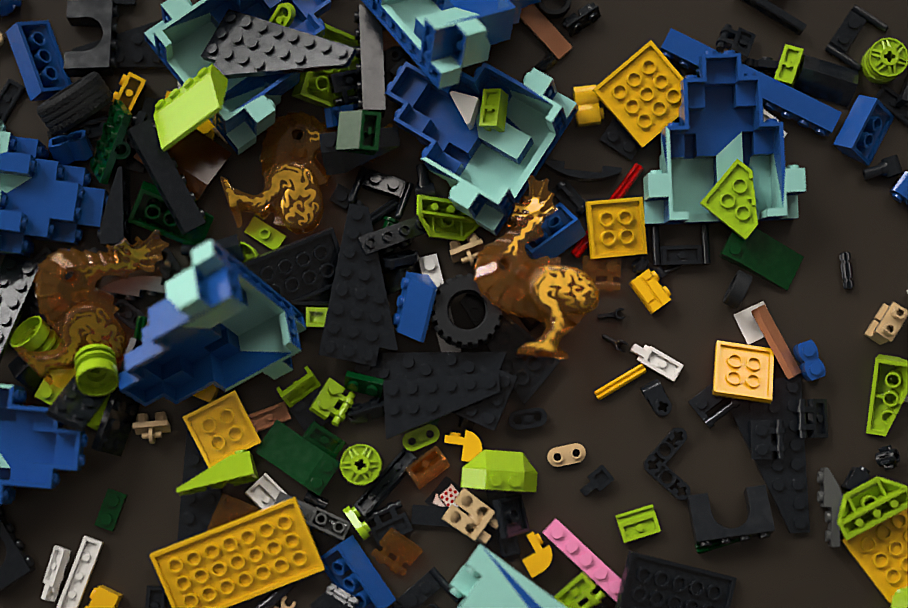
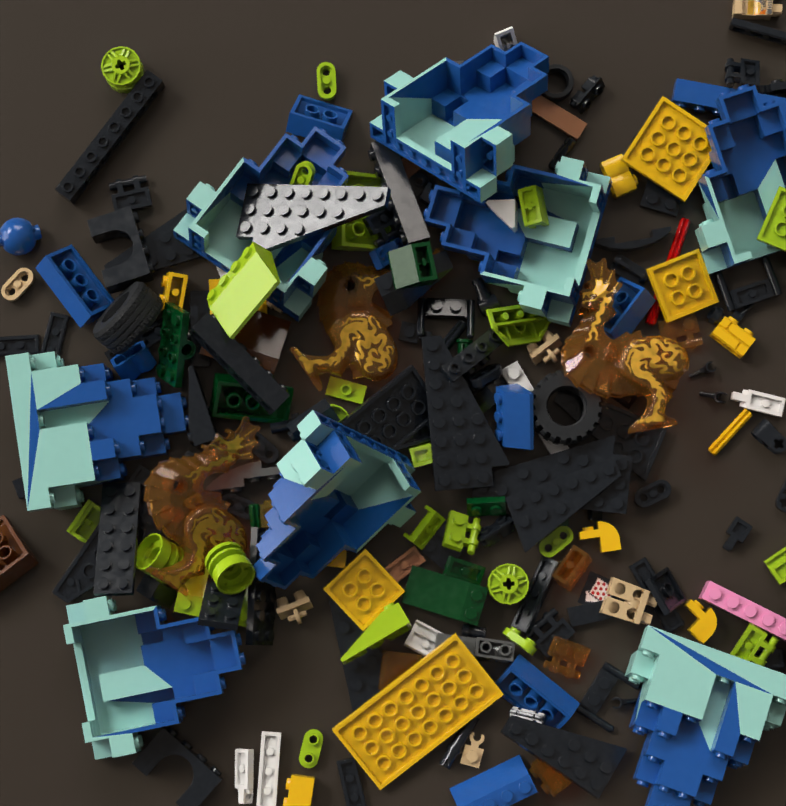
camera: 15 degrees left, 0 degrees up
(111, 509) = (278, 699): dark green plate -> none
(126, 566) = (310, 748): none -> lime plate
(500, 472) = (641, 552): lime wedge -> none
(566, 455) = (699, 516): tan plate -> none

